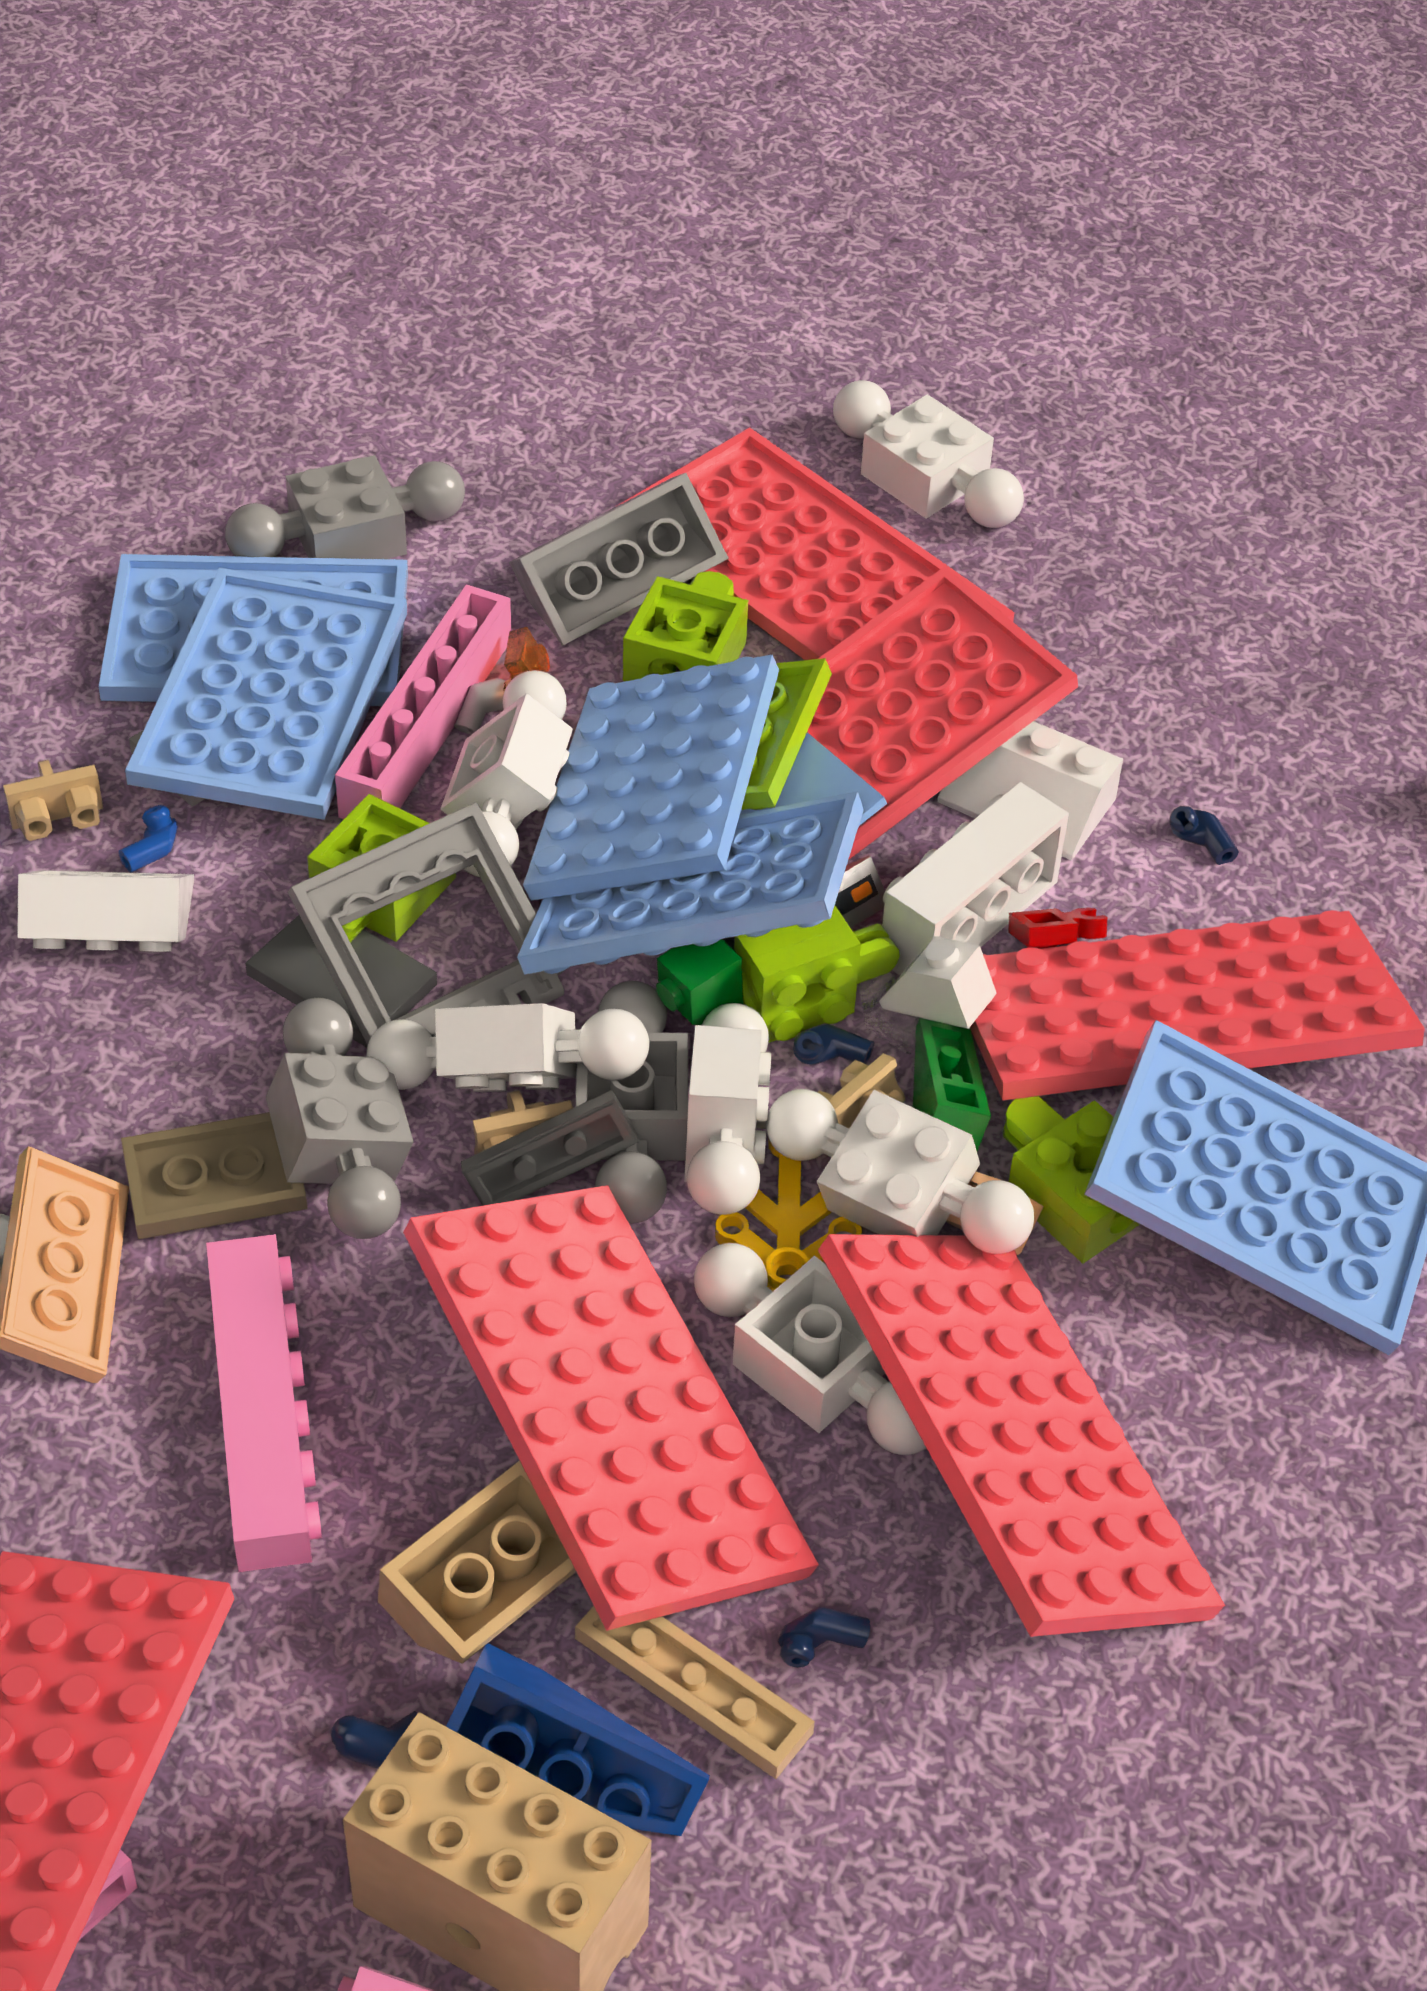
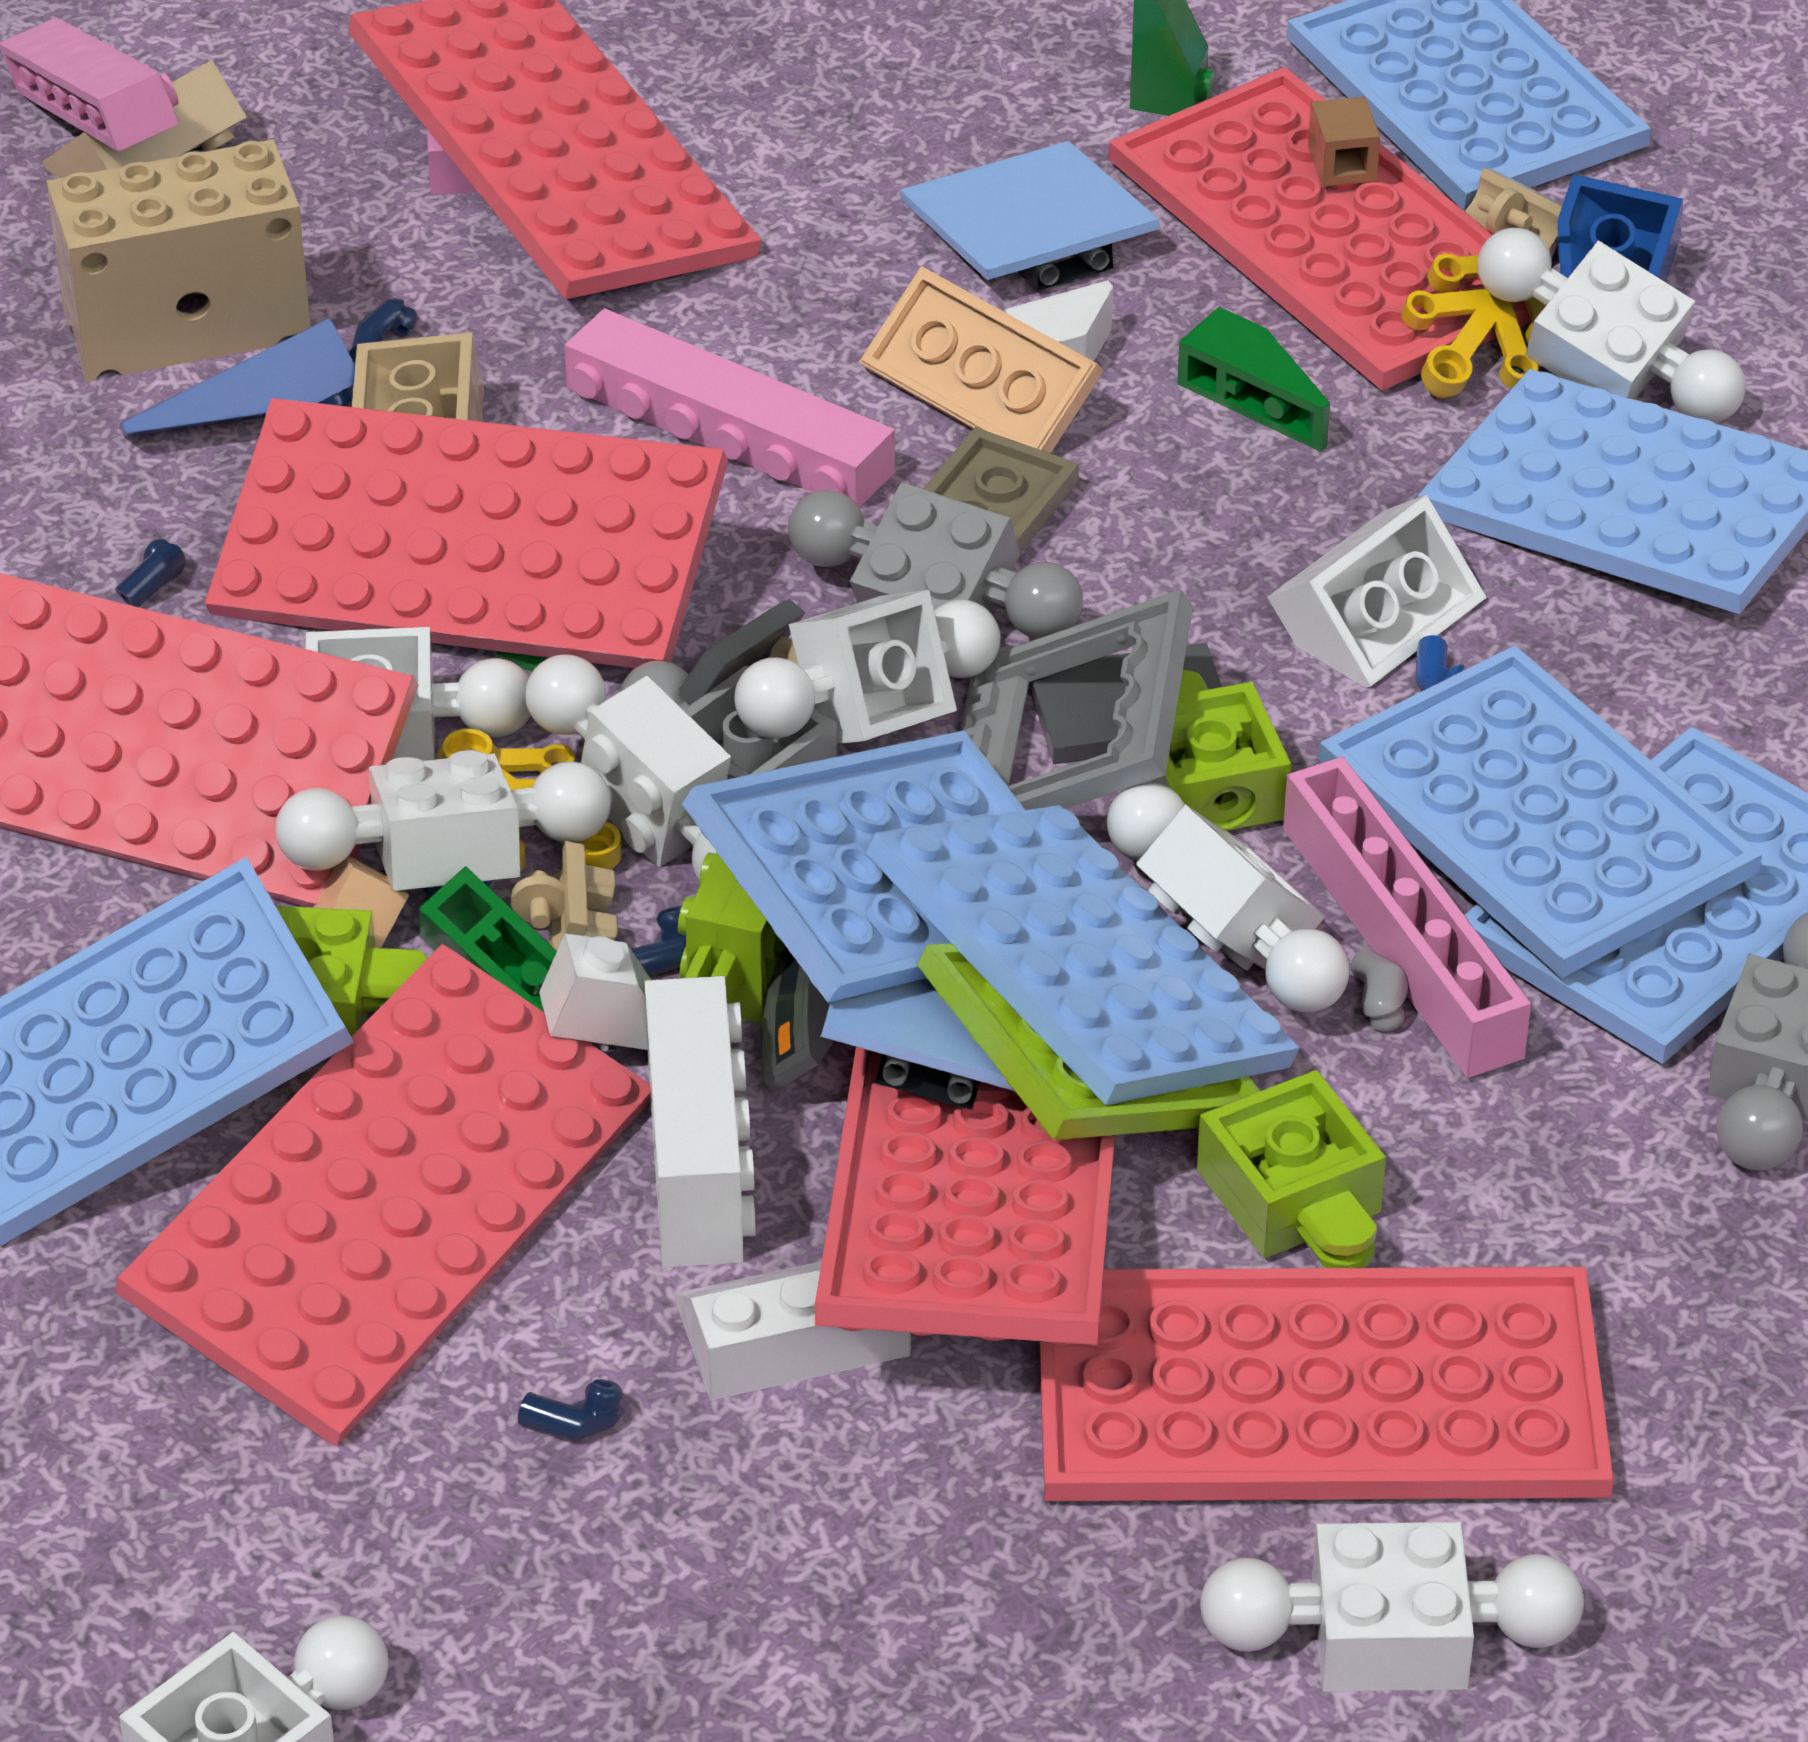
camera: 135 degrees right, 5 degrees down
(54, 796) = (1557, 624): tan hips -> none
(524, 654) = (1397, 1035): clear orange plate -> none
(615, 558) = (1479, 1188): light grey slope -> none
(702, 1688) = (167, 490): tan plate -> none
(1052, 927) = (600, 1185): red plate -> none

